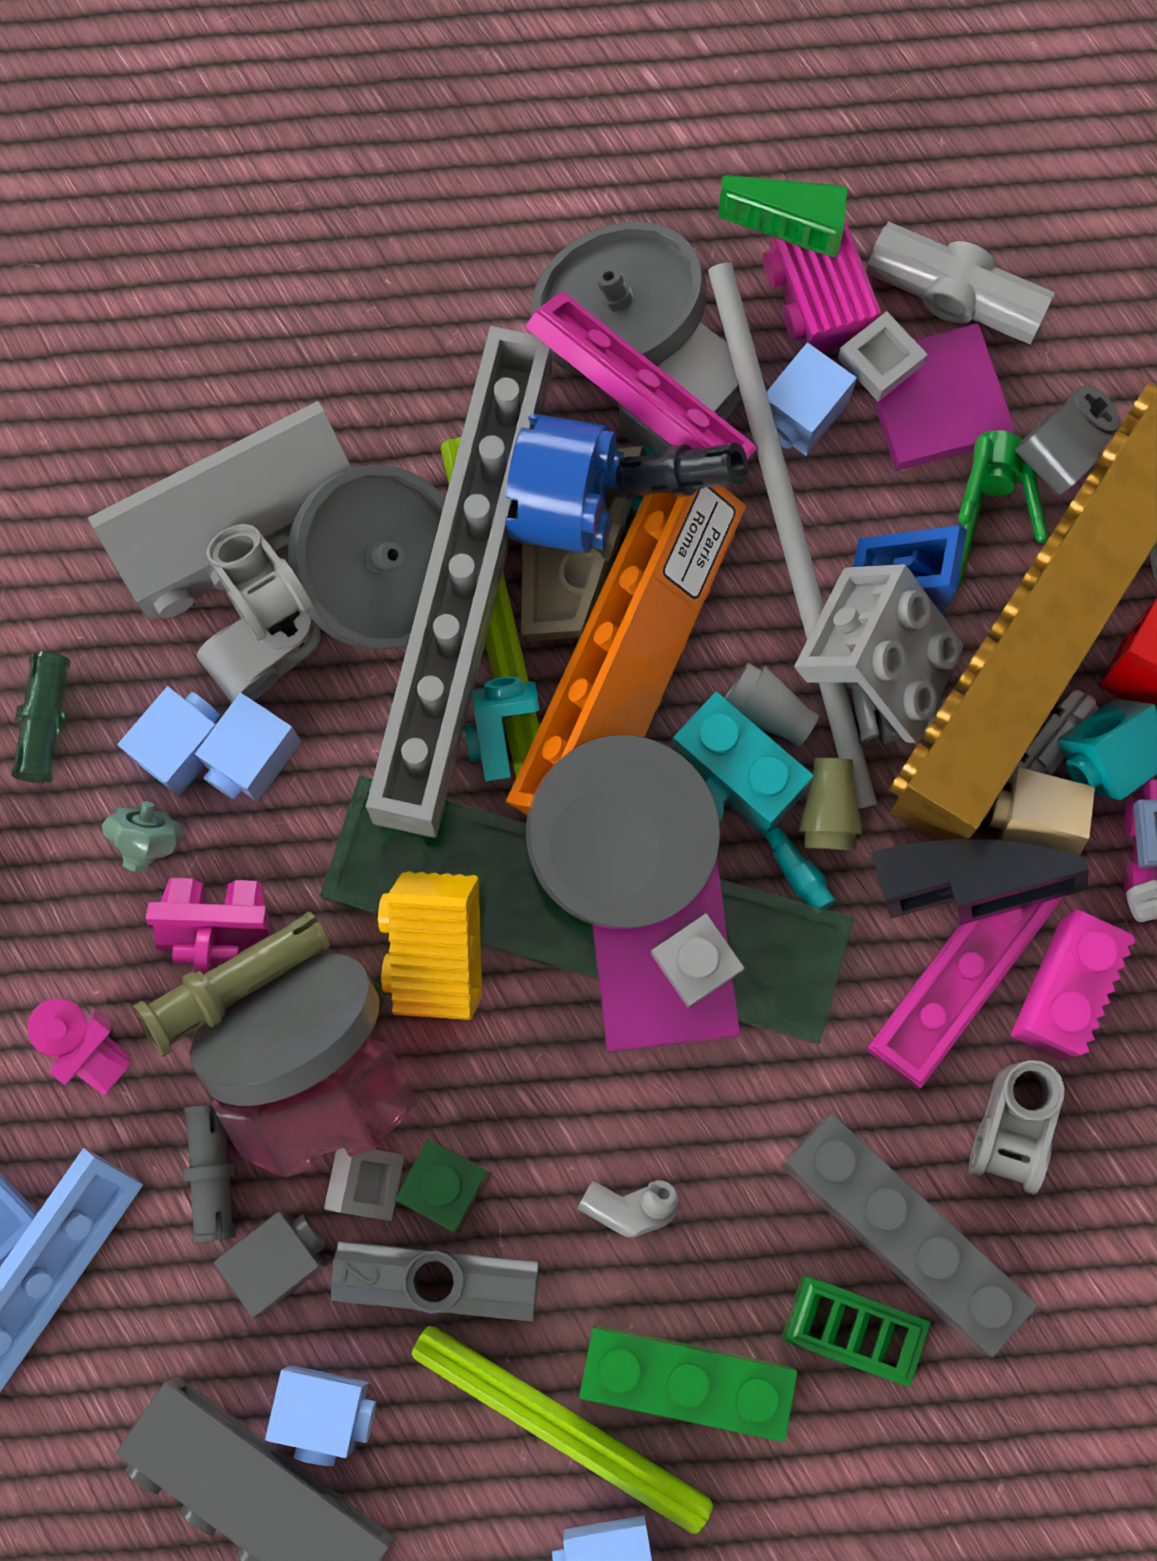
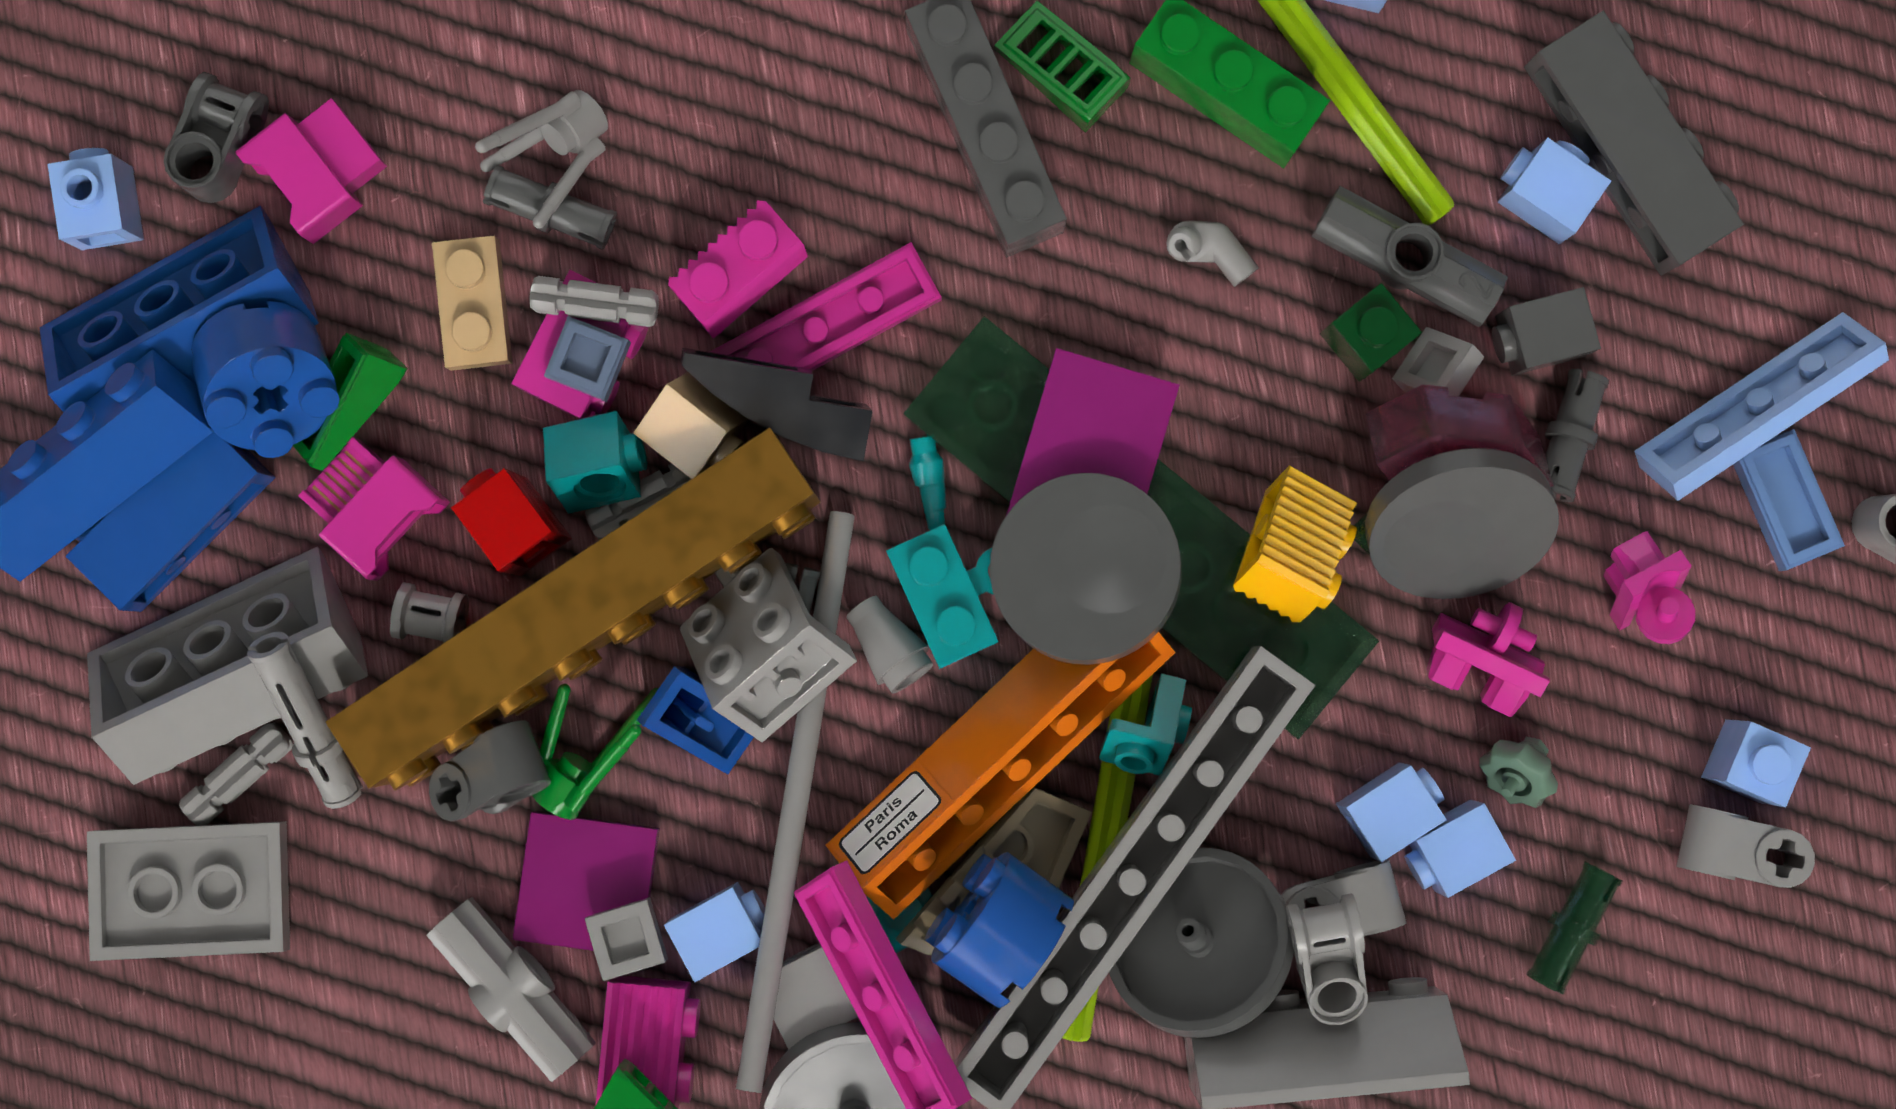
camera: 160 degrees left, 10 degrees up
(205, 996) = (1522, 585): olive pin -> none
(682, 470) = (881, 889): black pin -> none
(697, 960) = (1067, 426): light grey plate -> none
(831, 808) = (876, 522): olive cone -> none
(1017, 1129) = (849, 163): light grey piece -> none

